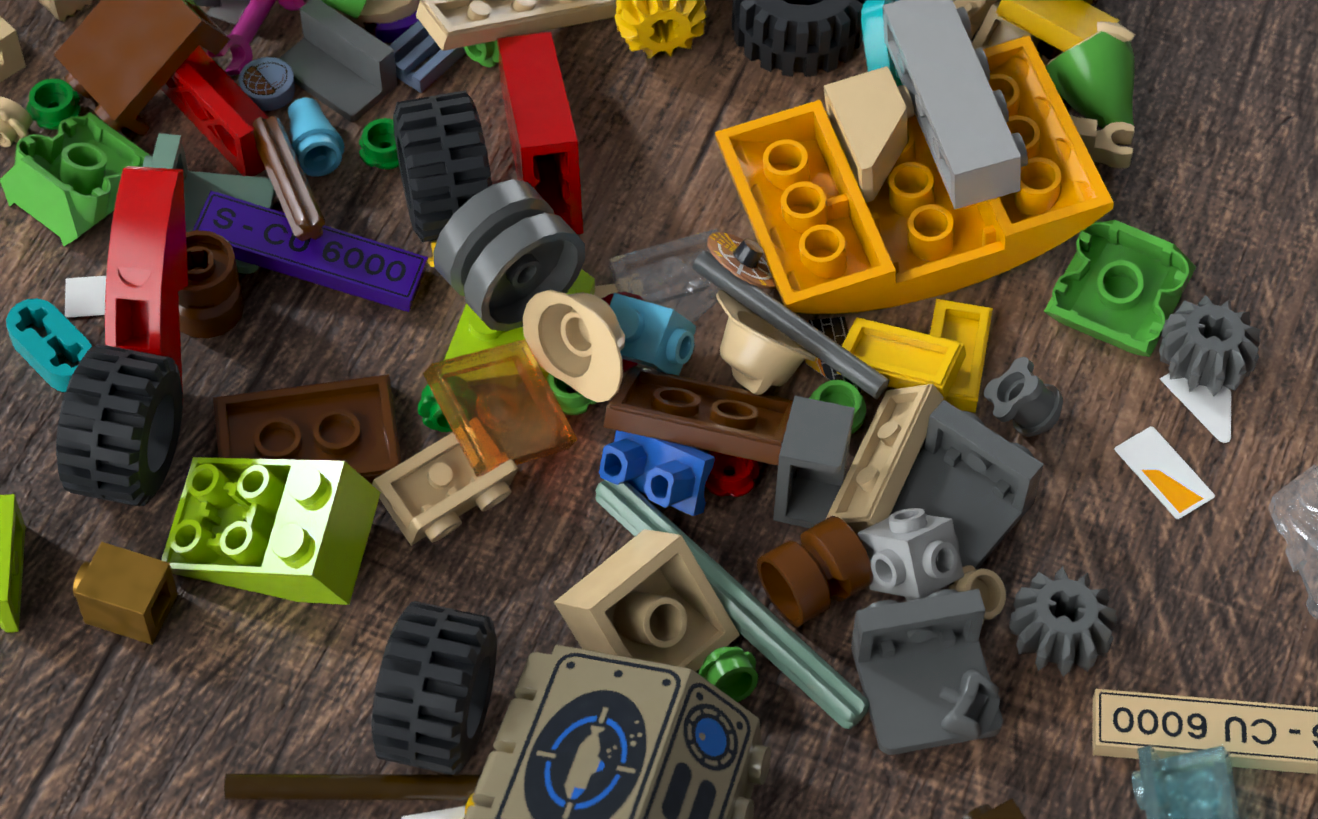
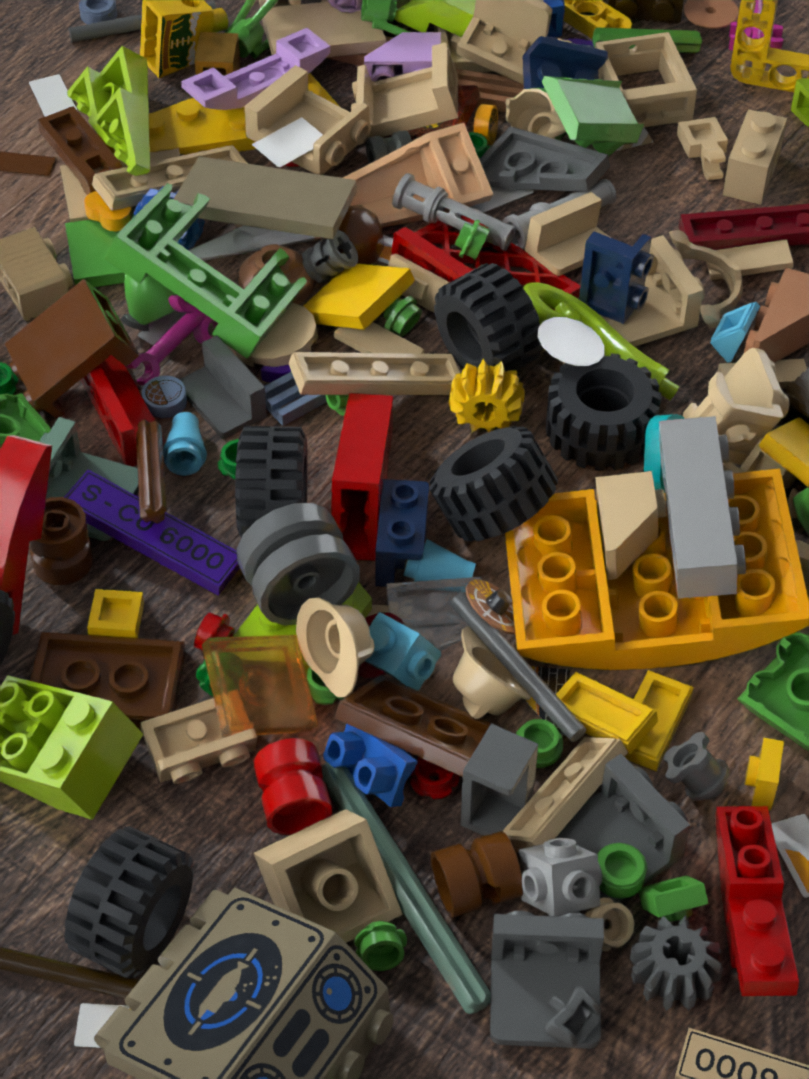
camera: 15 degrees right, 5 degrees down
(297, 357) = (116, 613): none -> yellow plate
(419, 356) = (213, 627): none -> red plate
(573, 516) = (292, 785): none -> red wheel
(608, 189) = (400, 527): none -> dark blue bracket
(655, 223) = (438, 565): none -> medium azure cone
(704, 115) = (493, 483): none -> black tyre
(977, 530) = (622, 870): none -> bright green tile
(1039, 549) = (673, 897): none -> bright green plate
(1101, 389) = (764, 772): none -> yellow plate
(1126, 535) = (753, 902): none -> red slope

